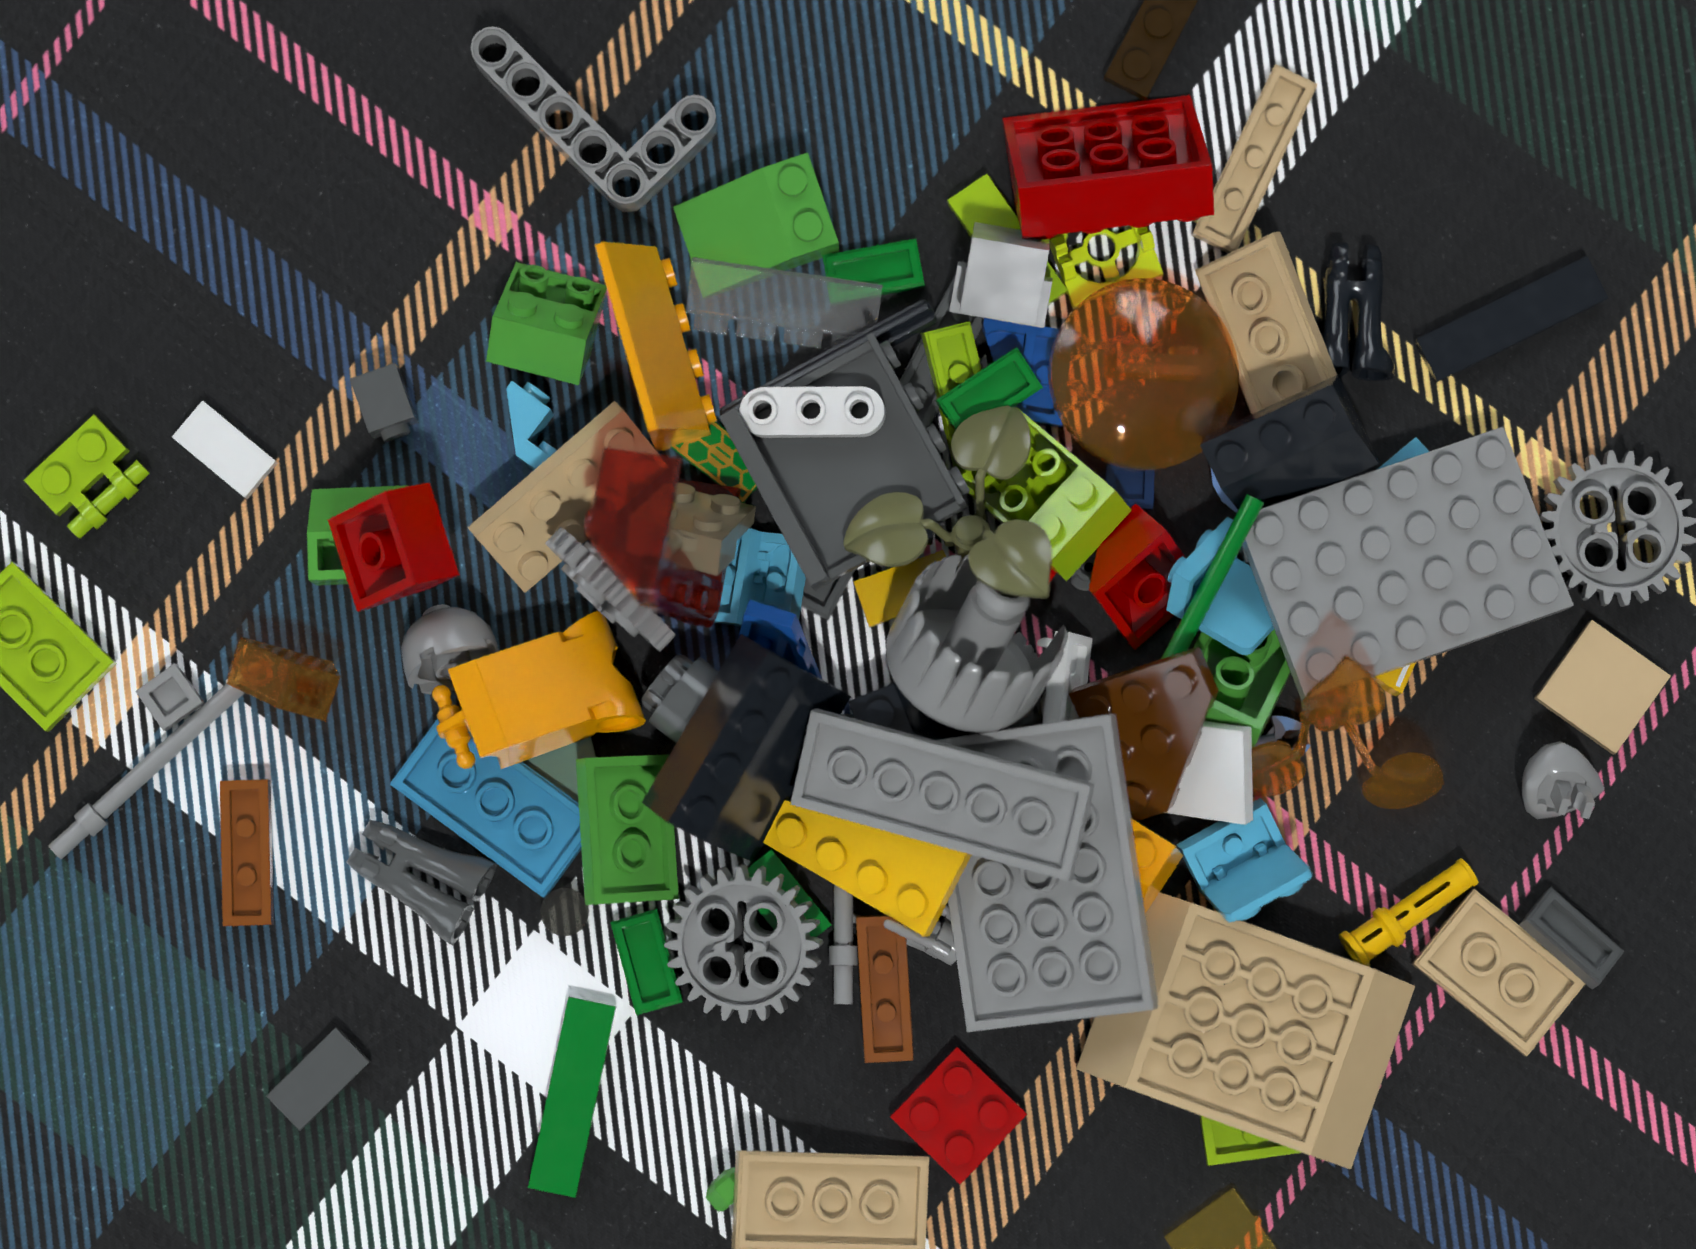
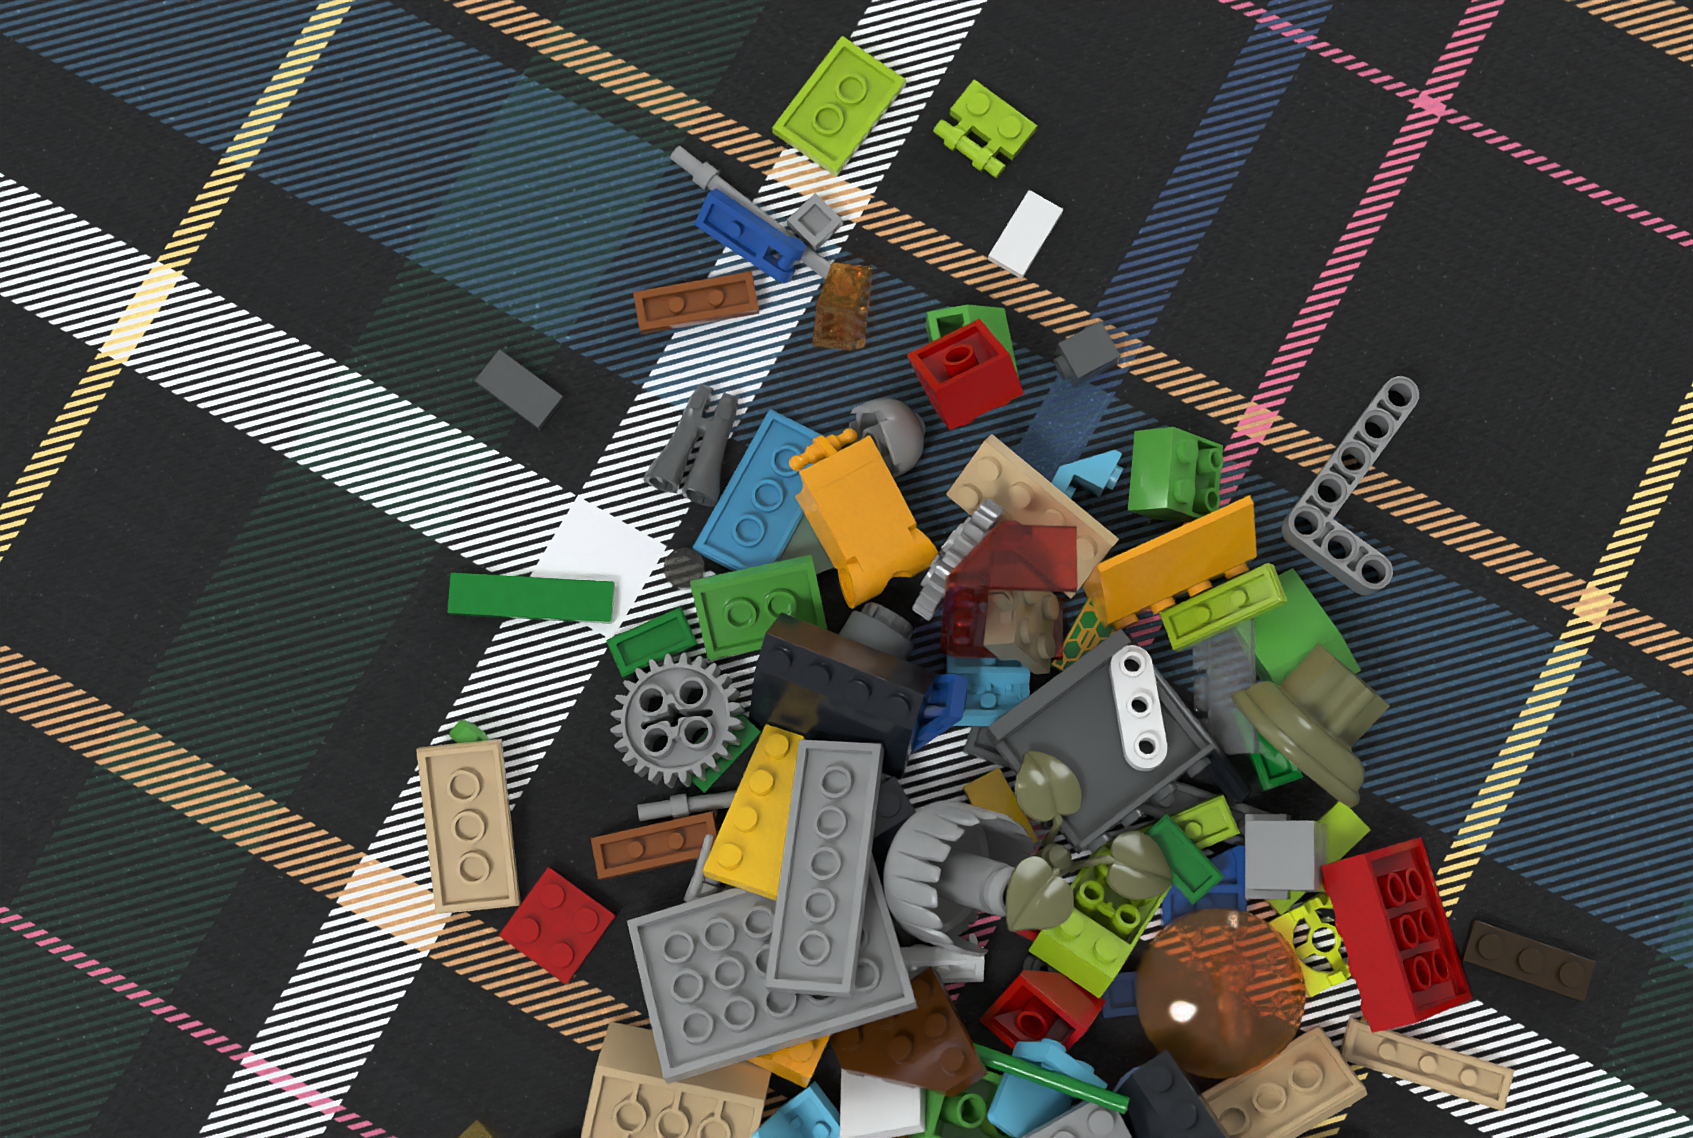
camera: 80 degrees right, 5 degrees down
(175, 777) = (749, 236): none -> blue plate
(710, 294) = (1223, 607): none -> lime tile
(859, 214) = (1316, 720): none -> olive piece

